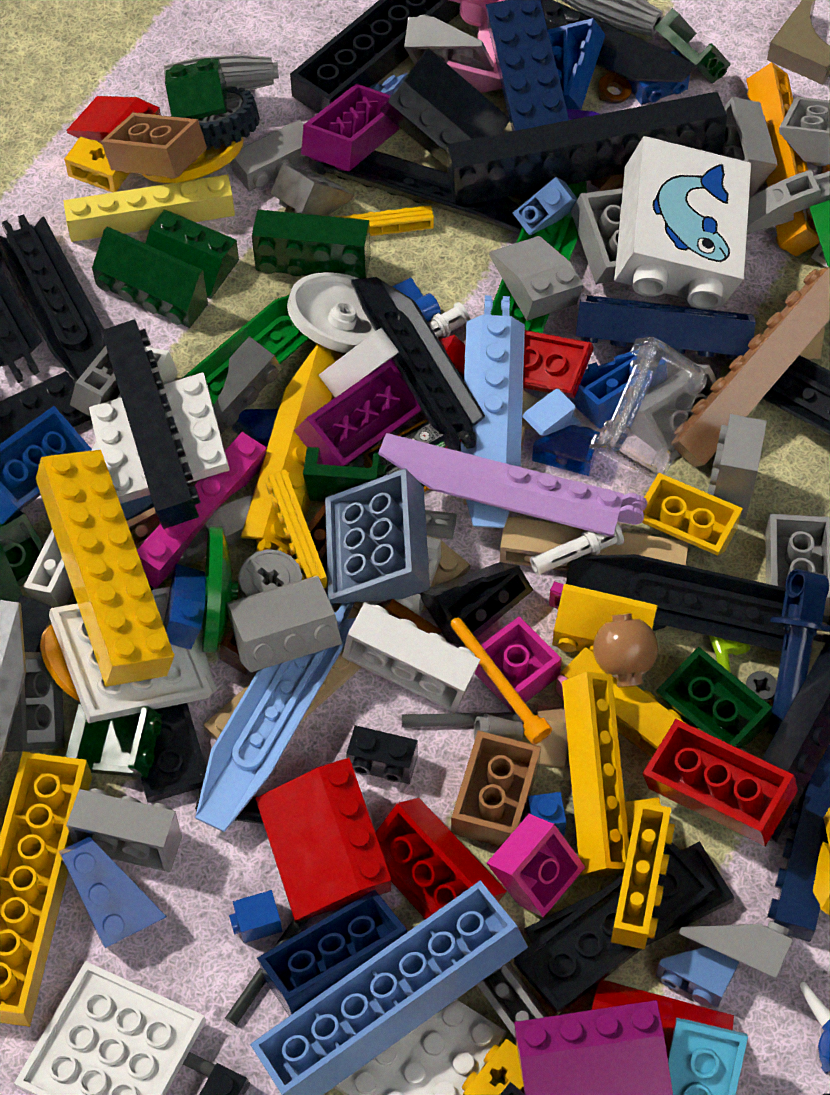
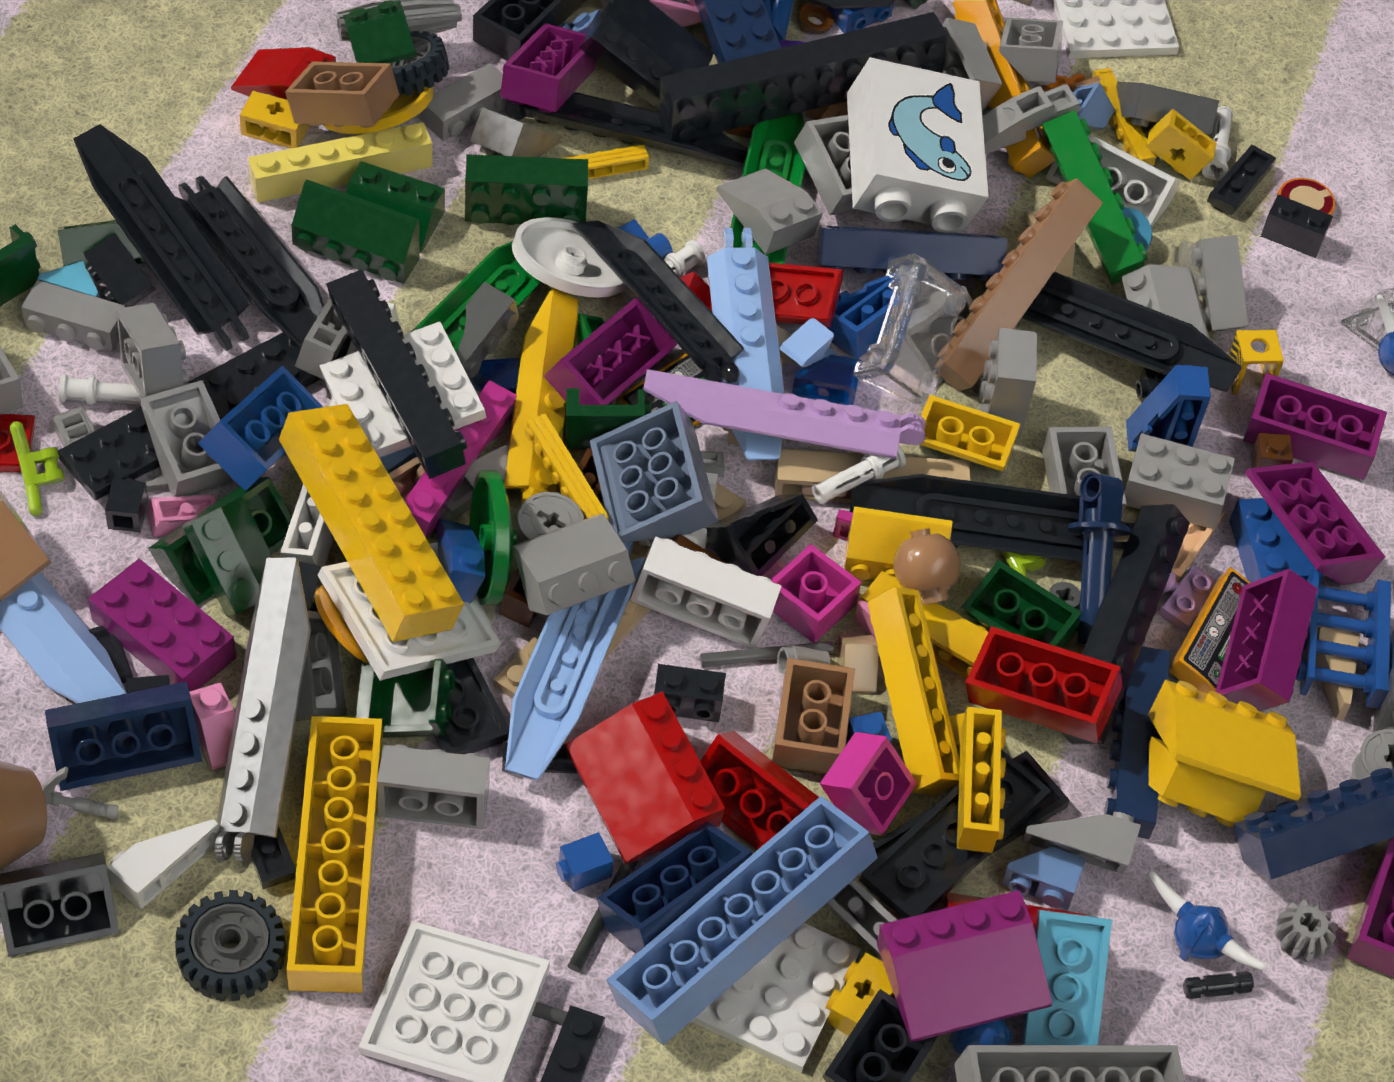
camera: 15 degrees left, 5 degrees down
(108, 894) = (427, 848): blue wedge -> none
(358, 362) = (602, 303): white beam -> none
(535, 727) = (847, 650): light orange piece -> none
(546, 206) = (768, 138): medium blue slope -> none

